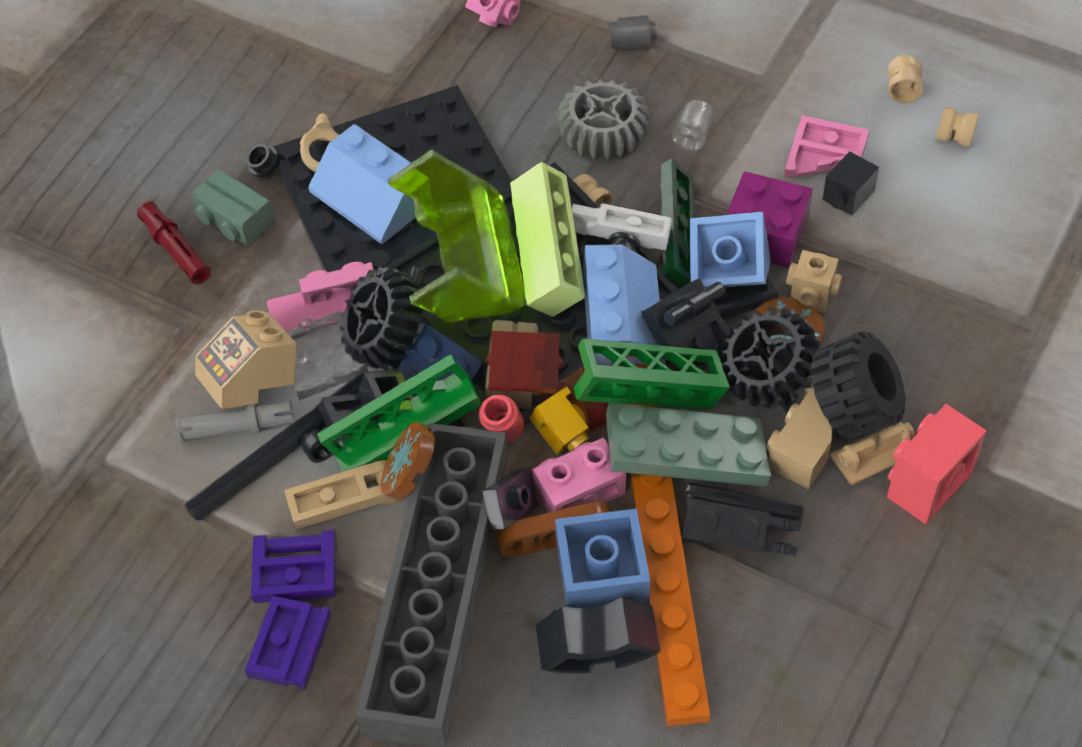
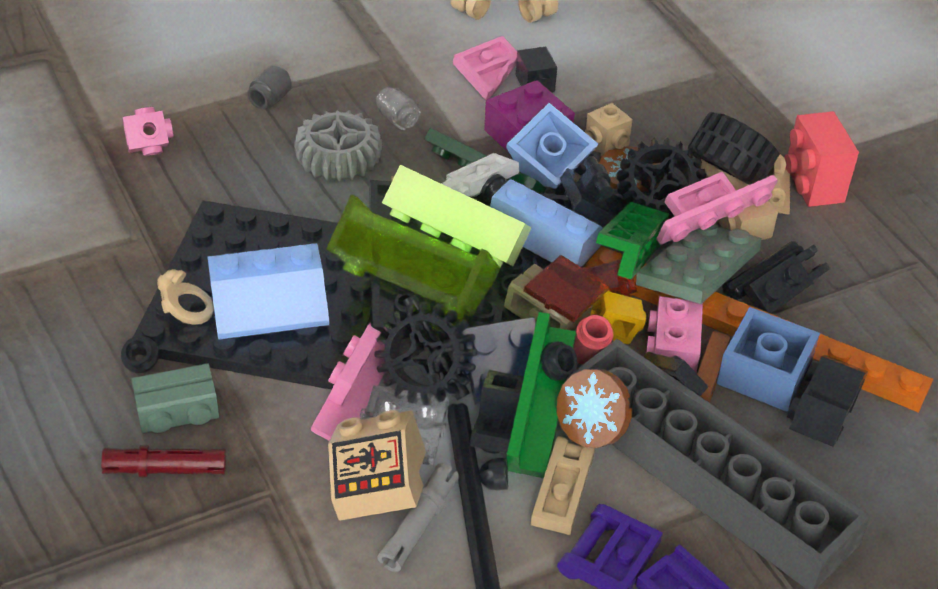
camera: 60 degrees left, 10 degrees down
(425, 414) = (558, 360): none -> black plate
(755, 403) = (707, 202): none -> bright pink bracket

